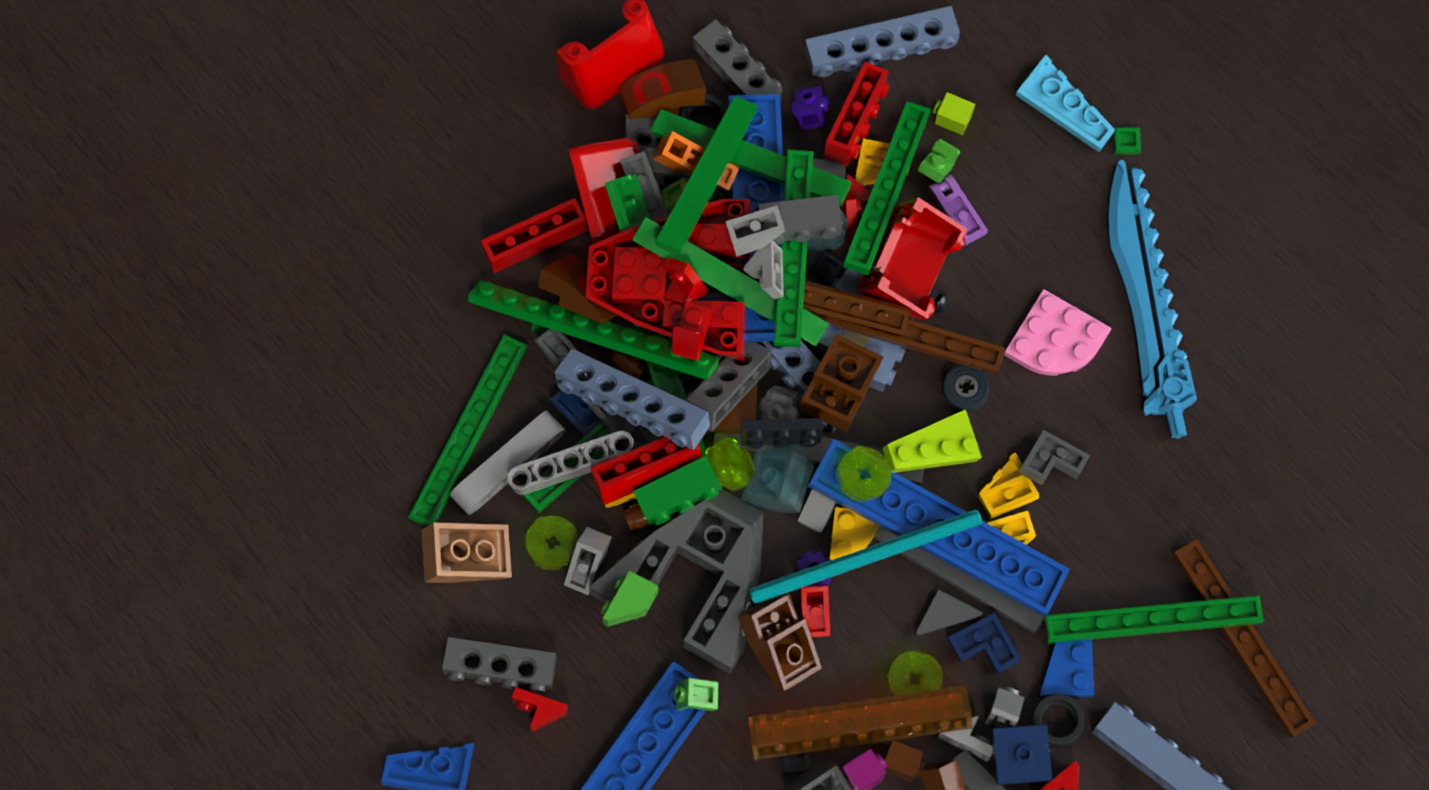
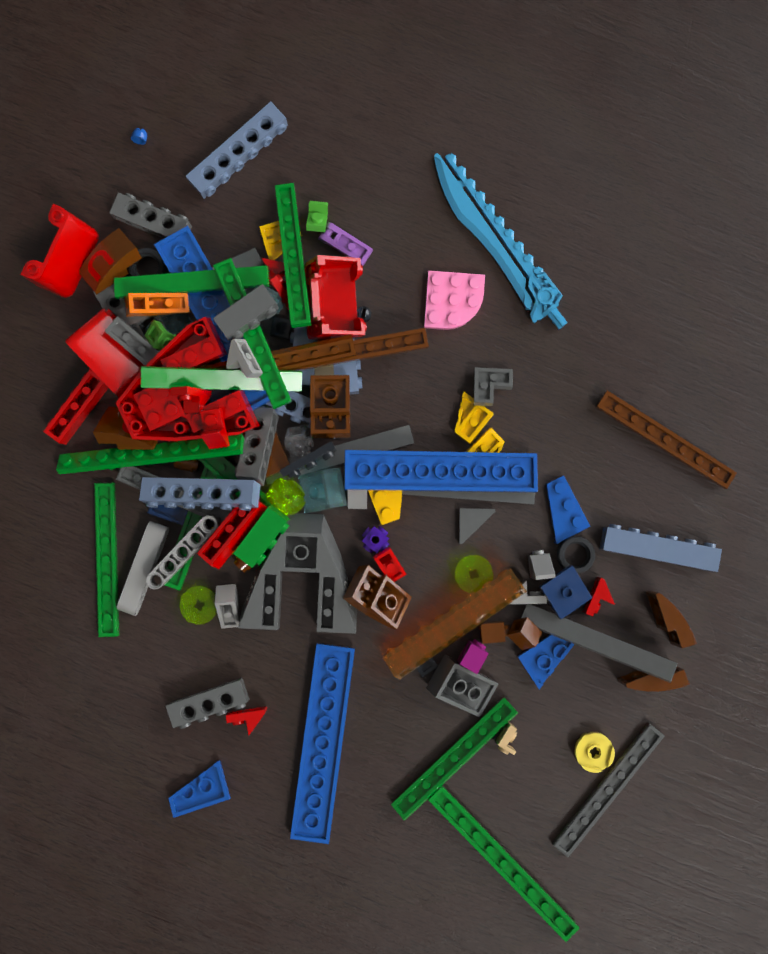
camera: 25 degrees left, 15 degrees up
(465, 552) = (148, 641): medium nougat slope -> none
(627, 201) = (125, 358): green hinge -> none
(631, 601) = (270, 624): bright green slope -> none
(696, 695) = (343, 660): bright green bracket -> none
(706, 176) = (168, 314): green tile -> none
(755, 230) = (219, 340): light grey slope -> none
(810, 107) = (213, 222): dark purple brick -> none
(856, 113) = (245, 210): red brick -> none
(861, 459) = (385, 472): clear neon green plate -> none
(865, 556) = (405, 517): teal axle -> none
(936, 445) = (411, 416): lime wing -> none
(953, 113) = (310, 177): lime brick -> none
(956, 378) = (411, 374): black bush -> none
(985, 636) = (506, 523): dark blue plate -> none
(1057, 99) = (379, 133): medium azure wing -> none
(1127, 140) = (432, 137): green tile -> none
(1153, 619) = (605, 458): green tile -> none

